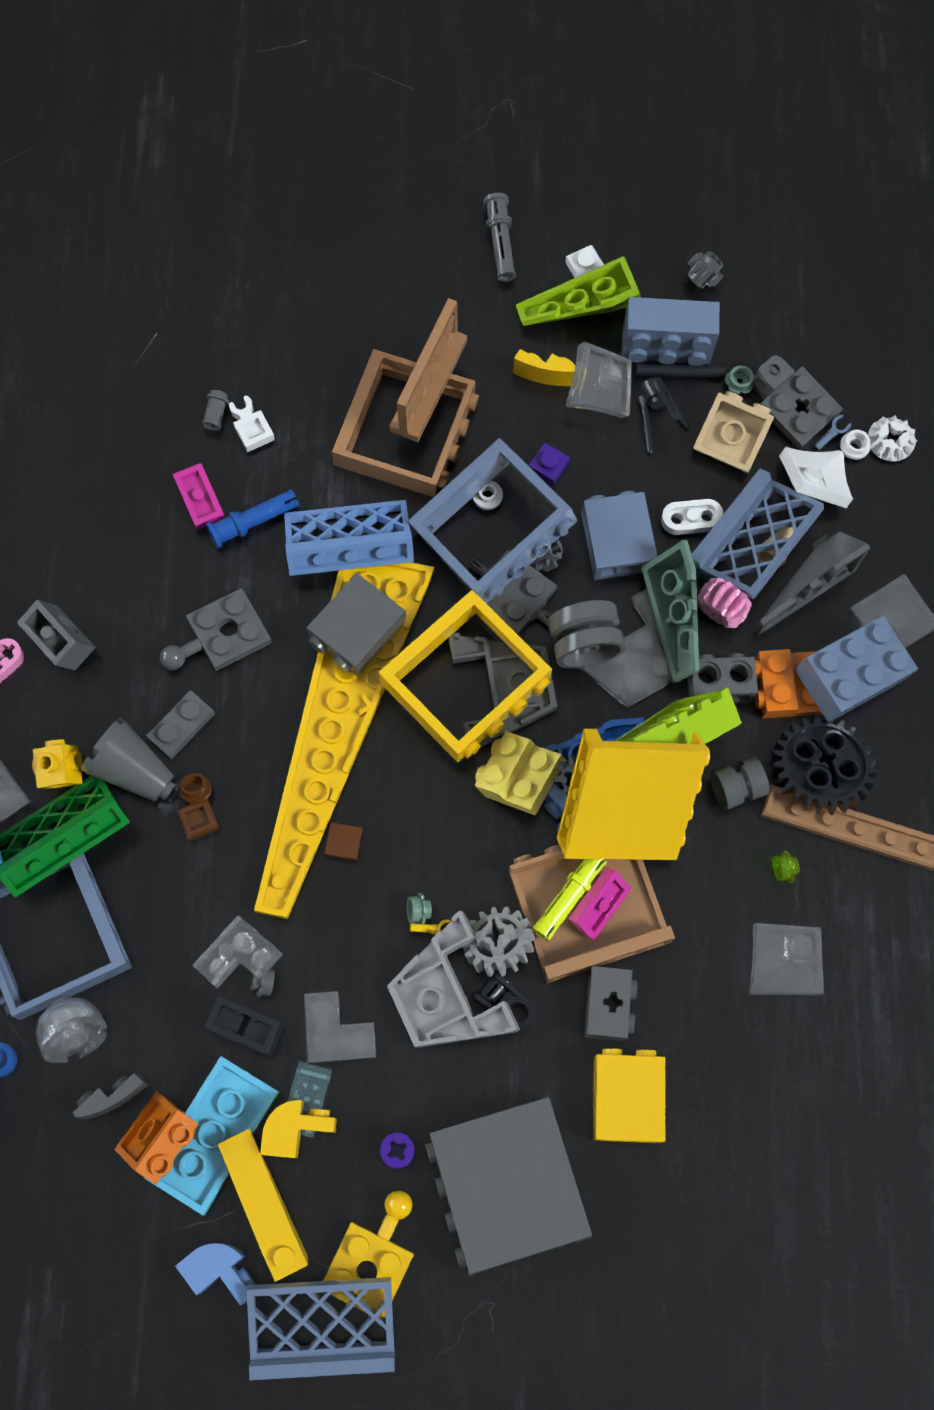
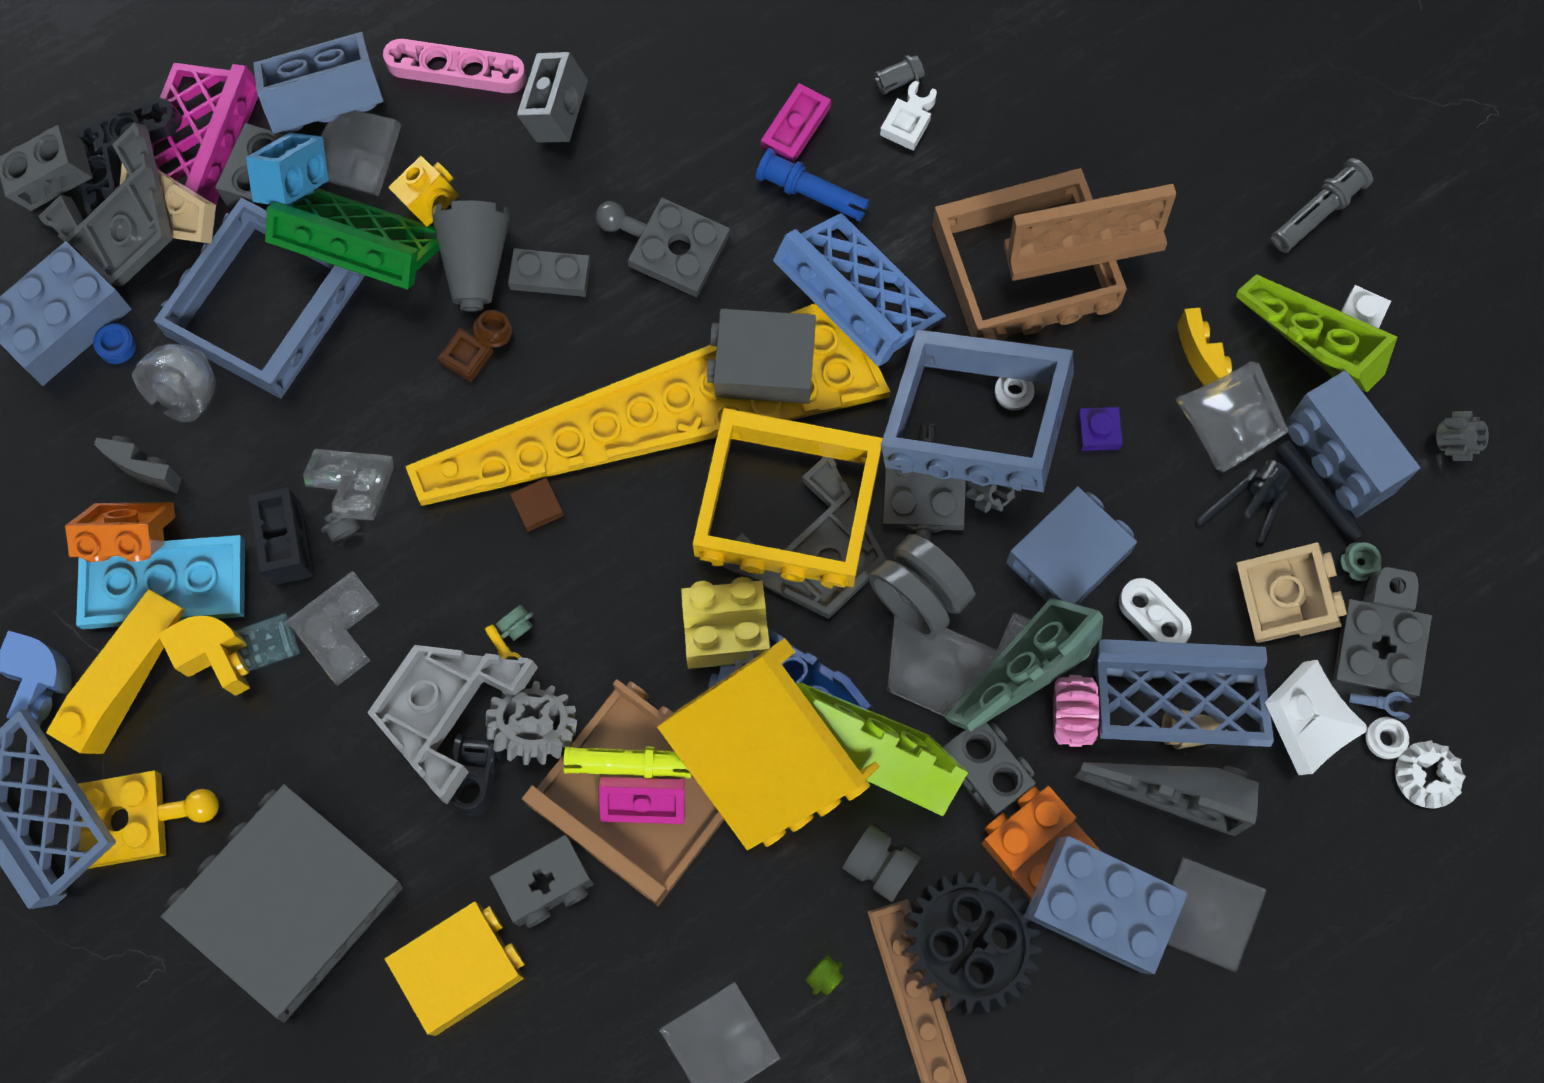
camera: 60 degrees right, 0 degrees up
(400, 1155) = (262, 773): dark purple wheel -> none

